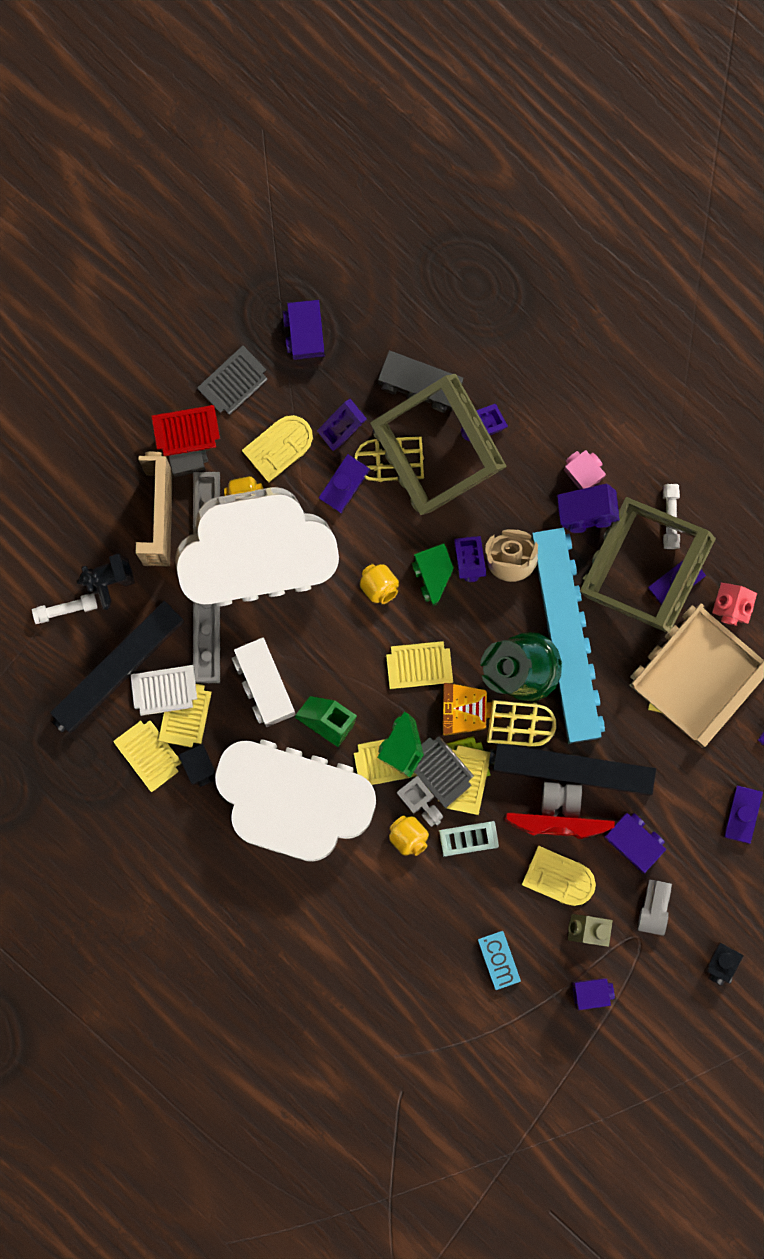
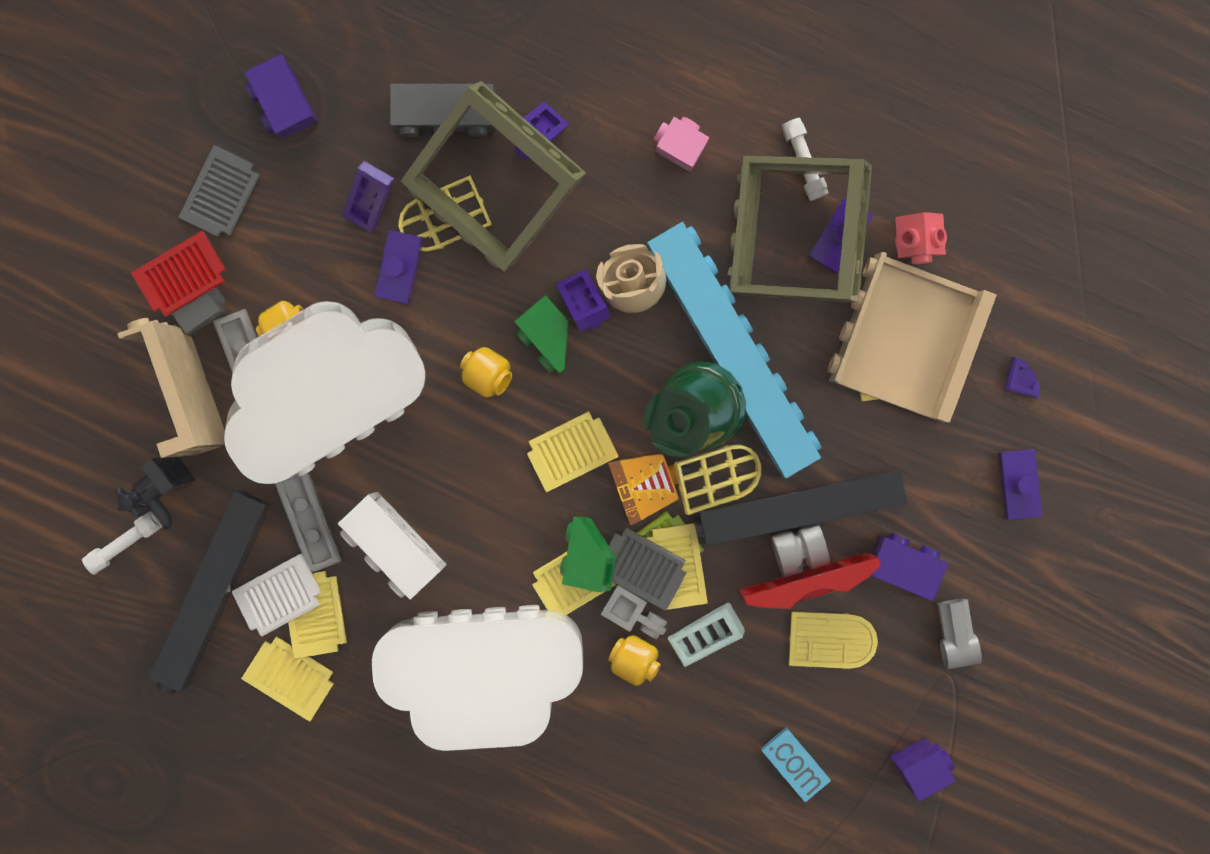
camera: 20 degrees left, 5 degrees up
(198, 766) = (351, 671): black brick -> none
(279, 446) = (305, 250): light yellow window -> none
(327, 719) = (484, 558): green slope -> none
(588, 508) = (703, 186): dark purple brick -> none
(590, 930) = (890, 690): olive bracket -> none
(723, 964) = (1061, 671): black bracket -> none

